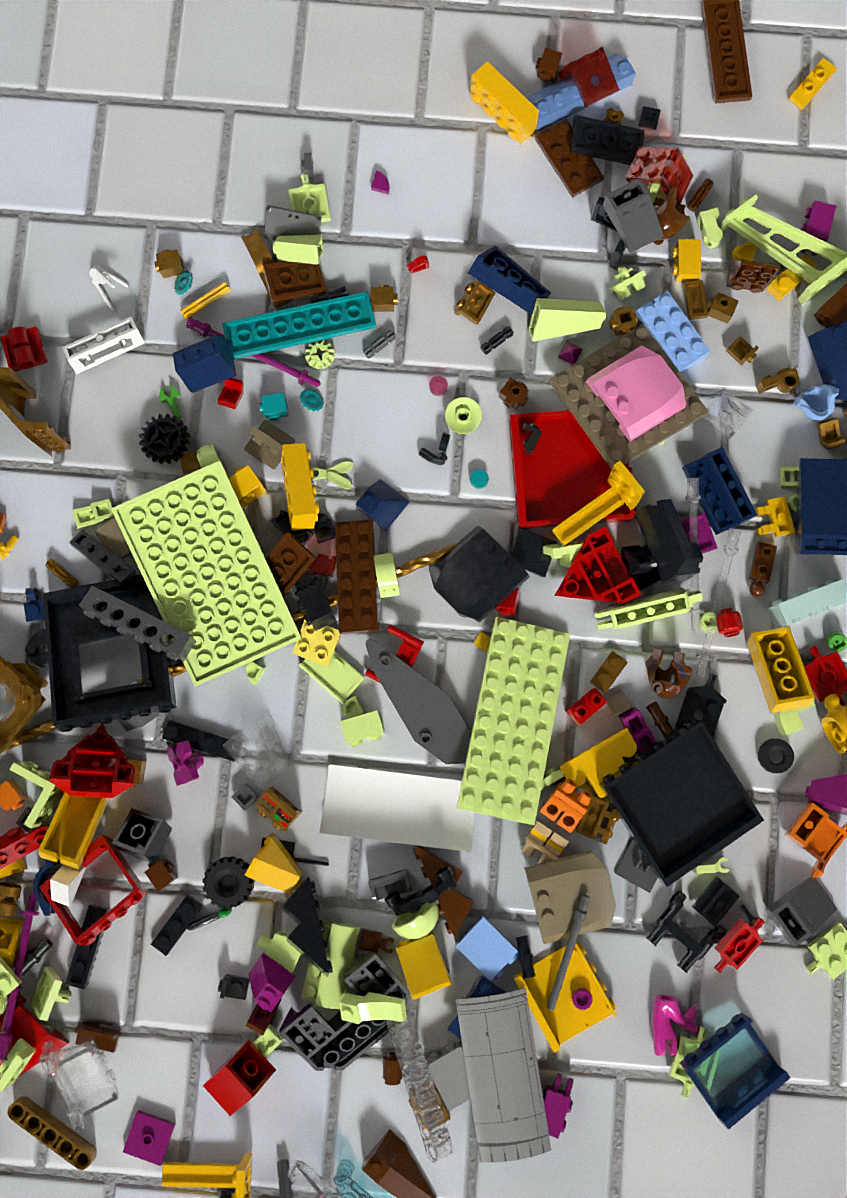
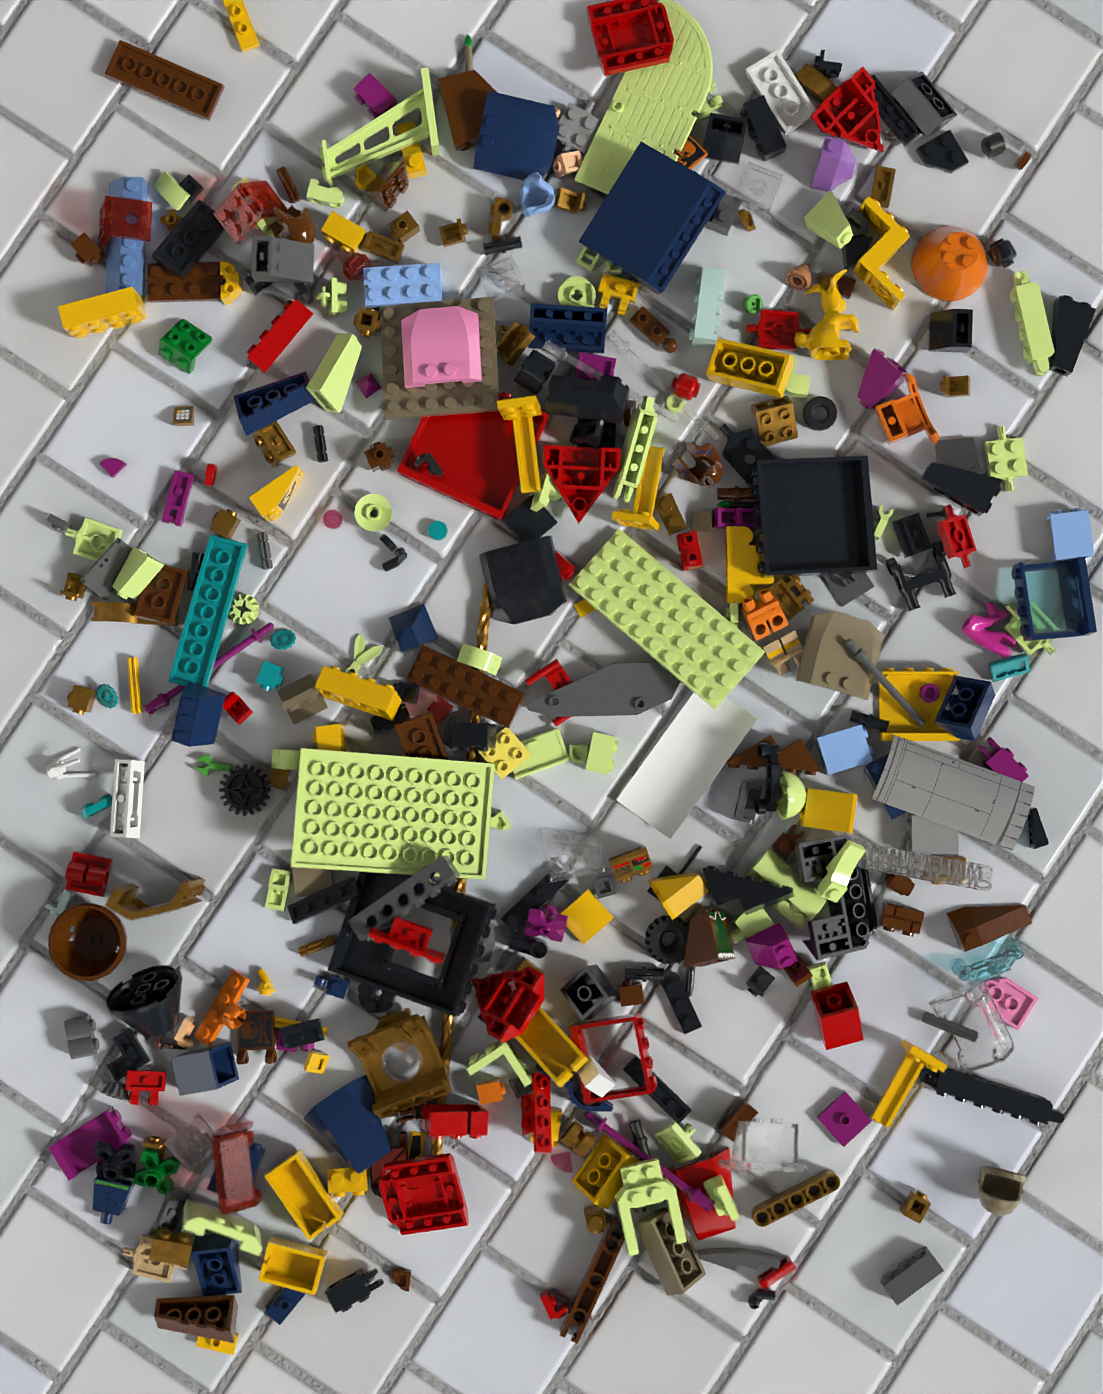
camera: 60 degrees left, 5 degrees up
(80, 322) = (91, 809): none -> teal plate
(102, 646) = (410, 937): none -> red bracket
(156, 756) = (526, 945): none -> black piece
(186, 876) = (635, 973): none -> black pin
(210, 795) = (586, 916): none -> yellow slope
(246, 918) = (708, 940): none -> reddish brown slope
(258, 206) = (74, 587): none -> pearl gold bracket
(361, 1089) = (901, 918): none -> reddish brown brick
(383, 249) = (178, 497): none -> magenta plate
(431, 326) = (276, 495): none -> yellow slope
(455, 217) = (183, 416): none -> slope
(511, 1174) = (1037, 834): none -> black slope
(515, 182) = (183, 345): none -> green bracket
(569, 255) = (280, 335): none -> red brick
(587, 1041) = (965, 707): none -> dark blue slope
(588, 195) = (233, 286): none -> yellow cylinder
(613, 640) = (645, 496): none -> yellow bracket
(638, 104) = (171, 191): none -> yellowish green slope
(647, 1062) = (1009, 667): none -> teal plate
(649, 723) = (726, 504): none -> black piece
(663, 283) = (354, 266): none -> clear red head
(664, 484) = (535, 372): none -> black brick
(676, 585) = (628, 413): none -> reddish brown tile
(680, 452) = (513, 341): none -> pearl gold slope
(745, 719) = (775, 420): none -> pearl gold bracket
(756, 398) = (502, 245): none -> black pin
(761, 479) = (583, 287): none -> yellowish green plate
(787, 925) = (962, 487): none -> black slope
(802, 1052) = (1070, 534): none -> light blue panel

